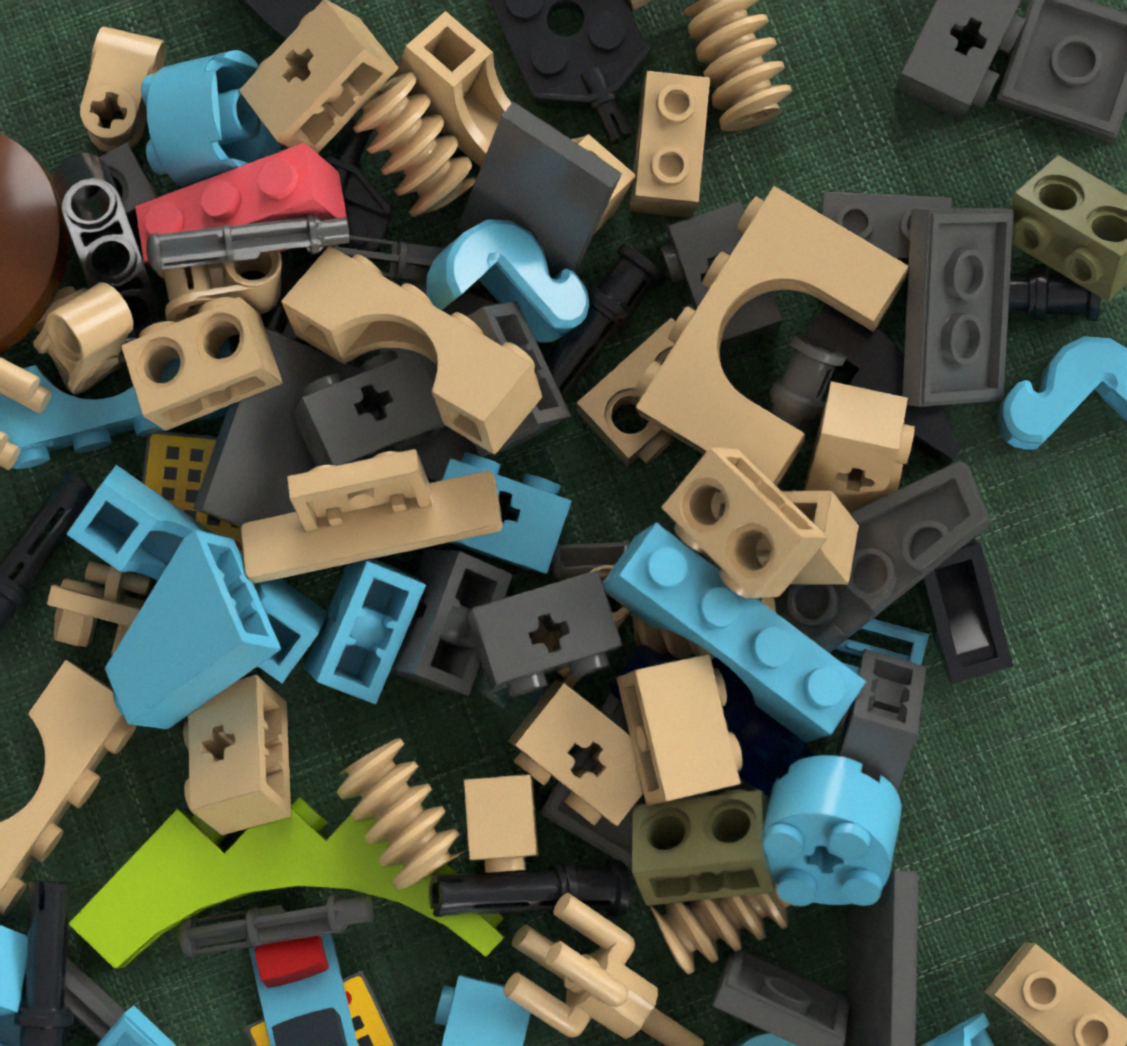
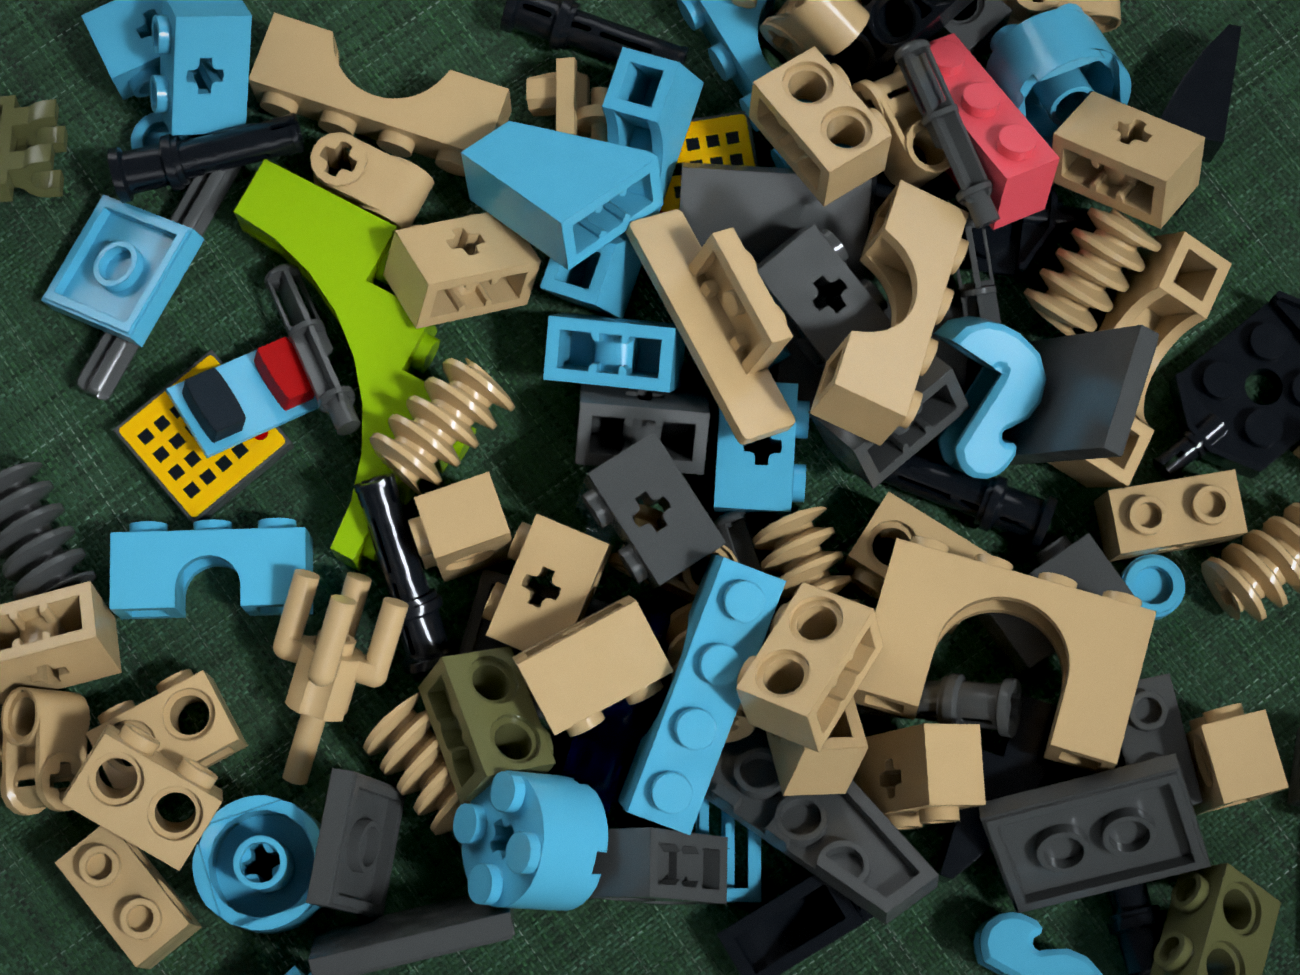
camera: 70 degrees right, 5 degrees down
(124, 814) = (377, 181): none -> tan piece
(624, 501) = (799, 553): none -> tan piece
(728, 179) = (1156, 583): none -> medium azure tile
(918, 156) = (1234, 757): none -> tan brick

